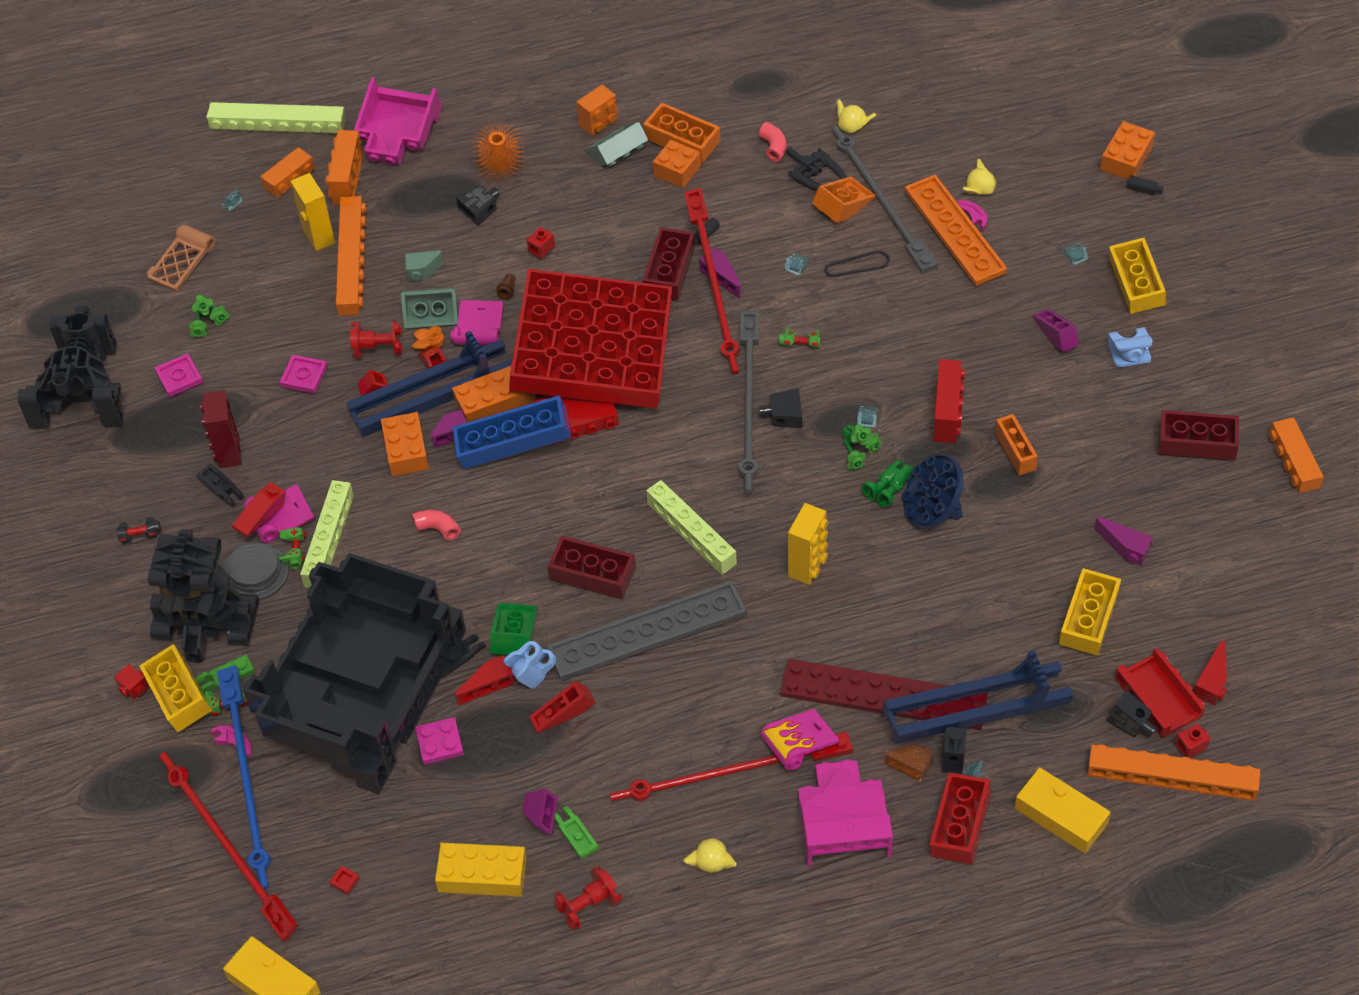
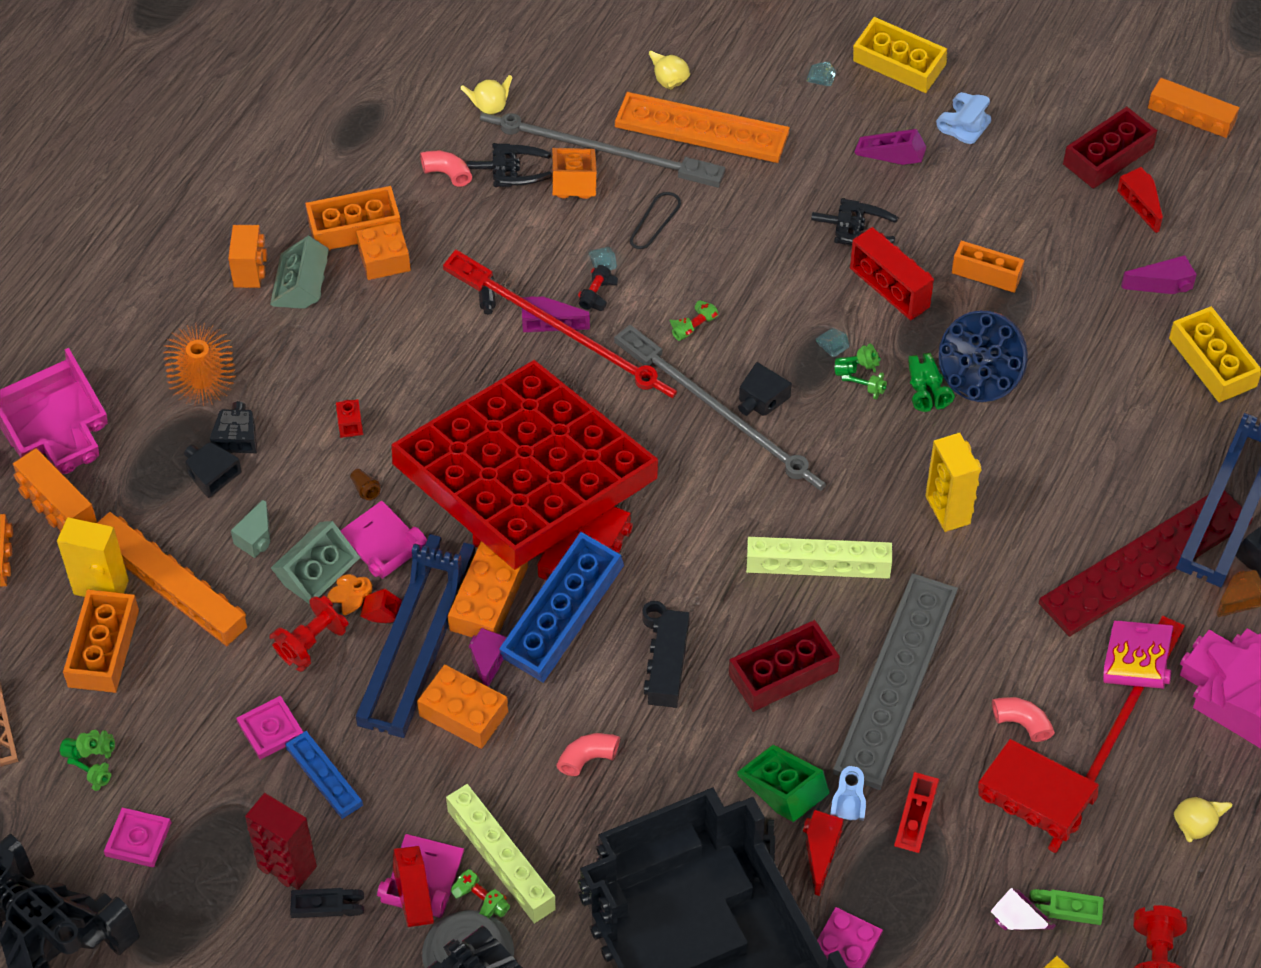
camera: 50 degrees left, 0 degrees up
(278, 260) = (101, 641): none -> orange brick
(298, 420) = (324, 774): none -> blue plate
(371, 382) = (354, 680): red brick -> none
(440, 214) = (211, 467): none -> black torso
(542, 508) = (668, 654): none -> black hinge
(638, 754) = (1037, 789): none -> red panel
(670, 259) = (494, 339): dark red brick -> none
(690, 711) = (1025, 713): none -> coral cylinder
(757, 278) = (600, 277): none -> black piece
(970, 352) = (846, 221): none -> black bar
(977, 214) = (699, 100): dark pink piece -> none
(1183, 481) = (1141, 194): none -> red slope

